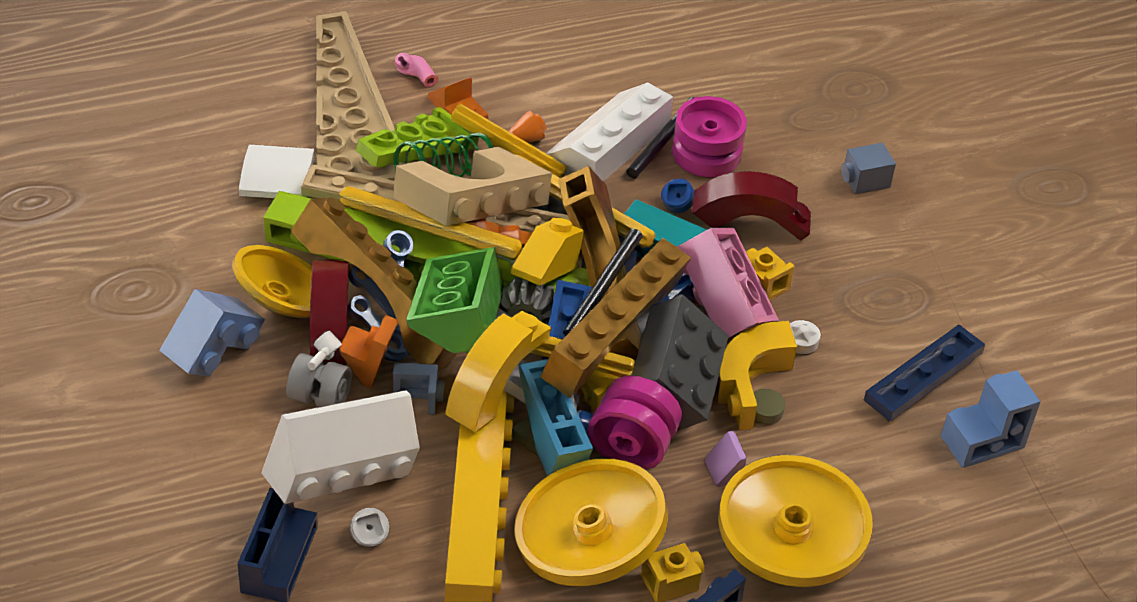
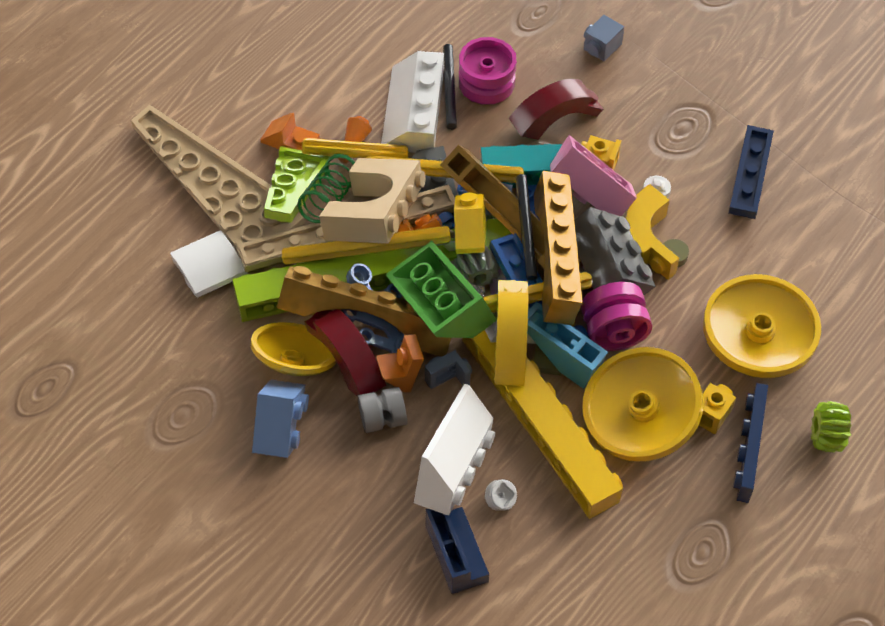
camera: 30 degrees left, 10 degrees up
(326, 345) = (375, 381): white hand -> none
(417, 67) = (236, 122): bright pink arm -> none
(678, 195) = (497, 127): blue tile -> none
(725, 459) = (683, 307): lavender slope -> none
(995, 424) = (822, 183): medium blue brick -> none

